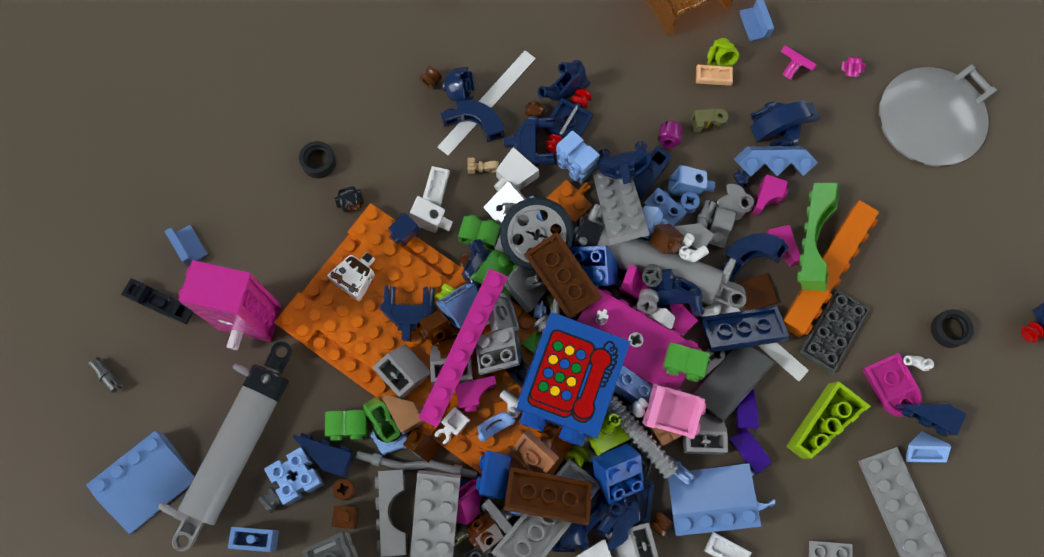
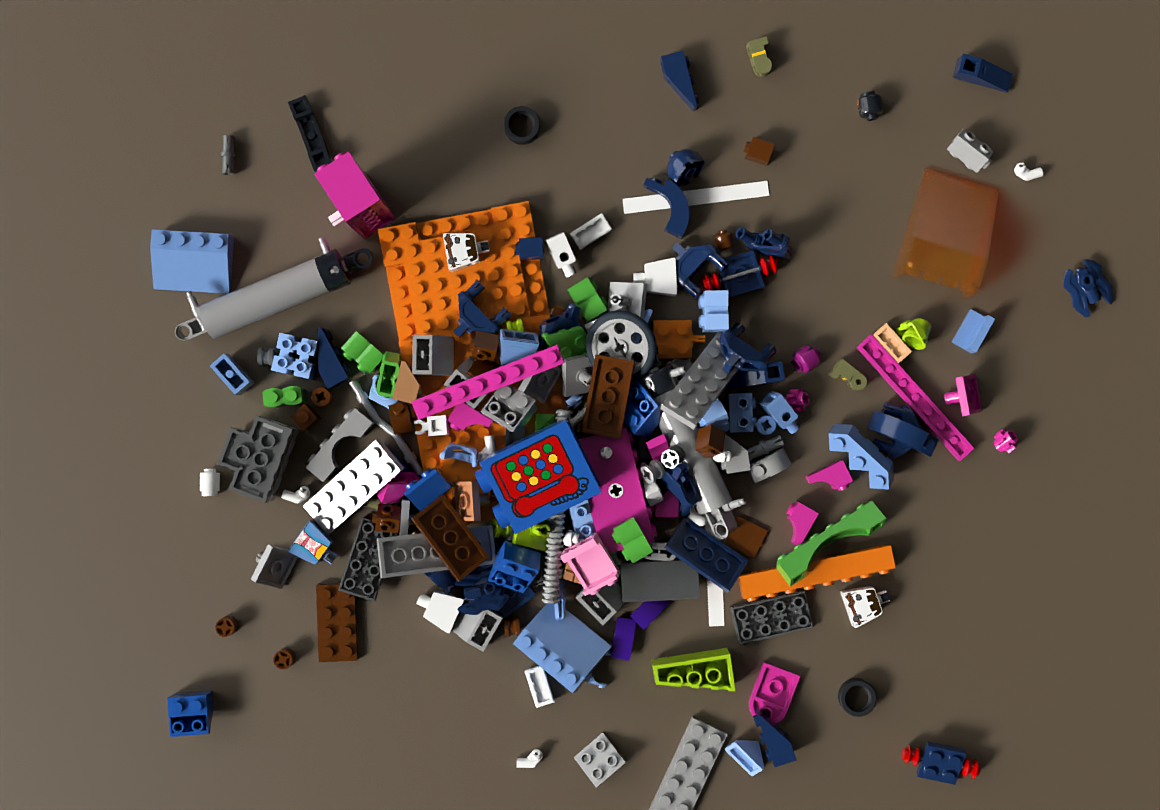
camera: 50 degrees right, 15 degrees up
(187, 244) = (367, 105): medium blue panel -> none
(309, 522) = (280, 397): none -> bright green brick
(349, 199) = (516, 181): black head -> none
(398, 36) = (676, 74): none -> dark blue slope
(430, 77) = (670, 136): reddish brown wheel -> none
(490, 166) = (638, 247): tan piece -> none
(500, 34) = (758, 151): none -> reddish brown brick
(693, 162) = (798, 399): none -> dark pink gear
(693, 255) = (716, 469): white arm -> none
(734, 200) = (799, 455): light grey plate -> none
(741, 178) = (823, 444): dark blue plate -> none
(755, 246) = (773, 503): dark blue arch -> none
(765, 93) = (915, 397): none -> dark pink plate
(884, 260) = (863, 604): none -> white torso
(919, 362) = (807, 696): white arm -> none
(935, 115) = (1029, 537): light grey dish -> none

